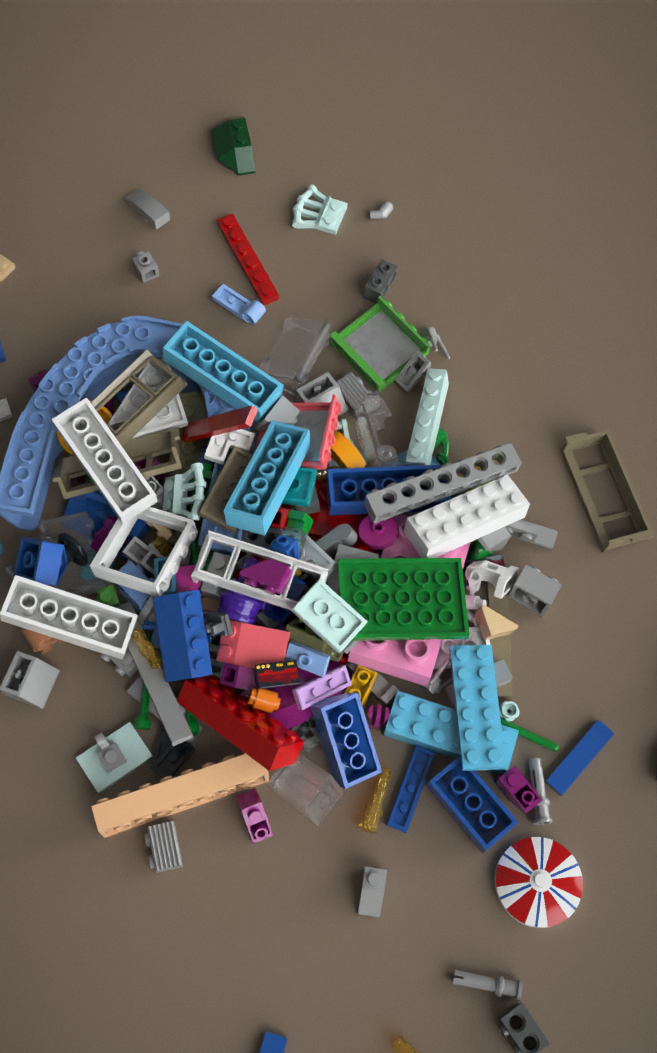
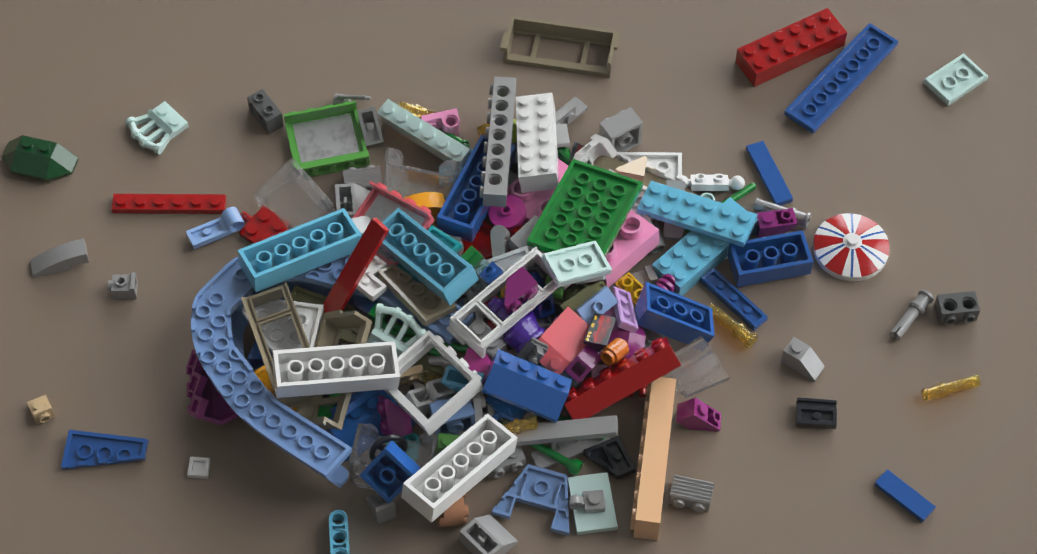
camera: 60 degrees left, 10 degrees down
(105, 702) = (542, 490): none -> medium blue wing
(258, 342) = (261, 225): none -> red plate
(317, 933) = (816, 413): none -> black plate
(383, 212) = (192, 78): light grey arm -> none
(457, 402) = (416, 109): none -> clear yellow pin
(457, 429) = (444, 120): none -> bright pink plate
(526, 647) = (658, 163): none -> white wing
(532, 703) = (713, 182): none -> white plate

